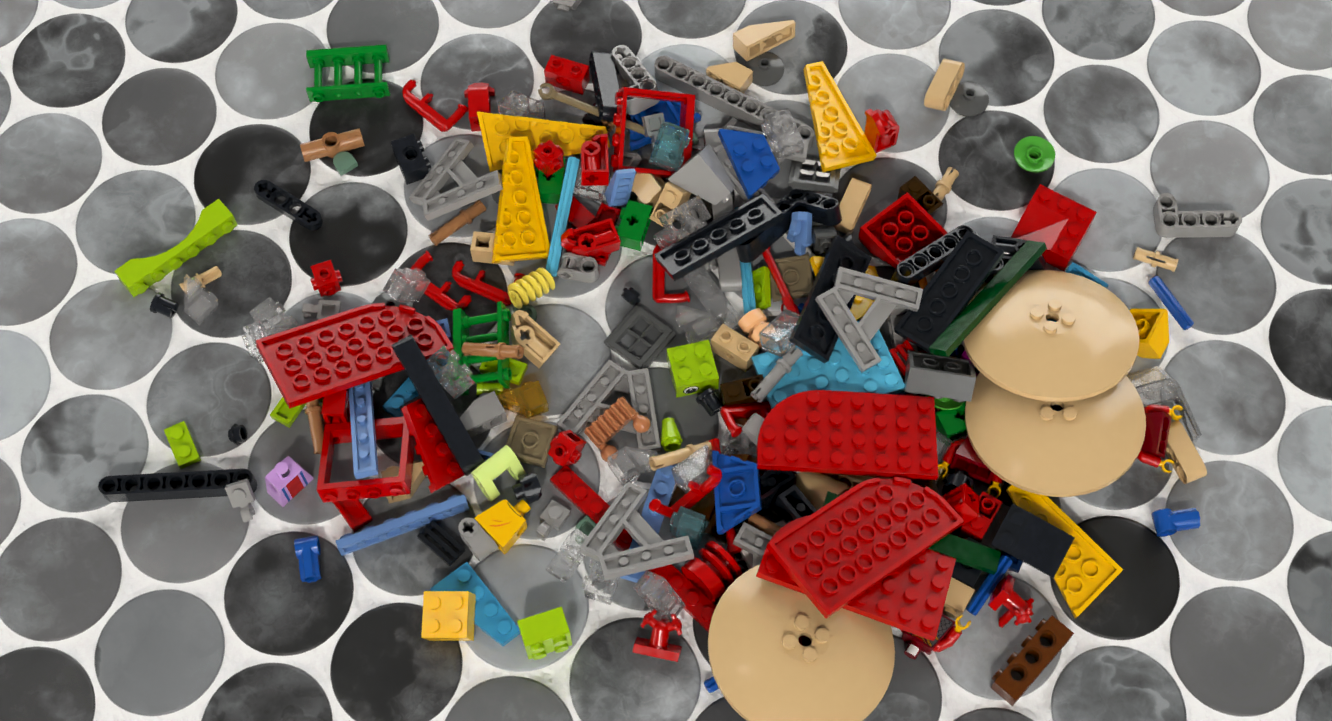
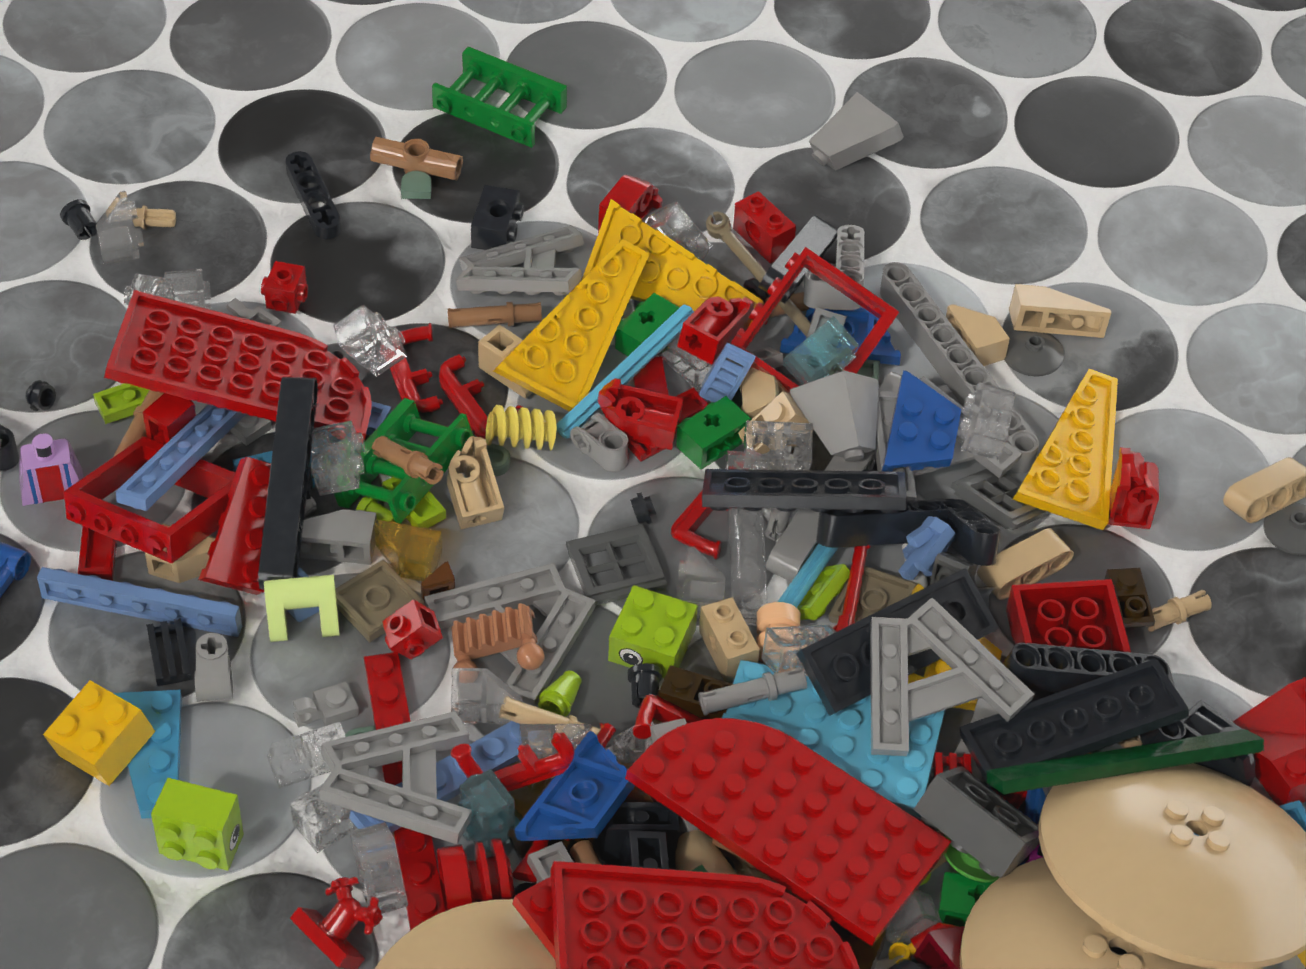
camera: 30 degrees right, 15 degrees down
(143, 272) = (89, 175): lime arch -> none
(427, 112) = (561, 188): red piece -> none
(504, 523) = (262, 672): yellow torso -> none
(528, 487) = (323, 647): black piece -> none
(548, 157) = (658, 293): red brick -> none
(559, 409) = (439, 581): none -> reddish brown slope

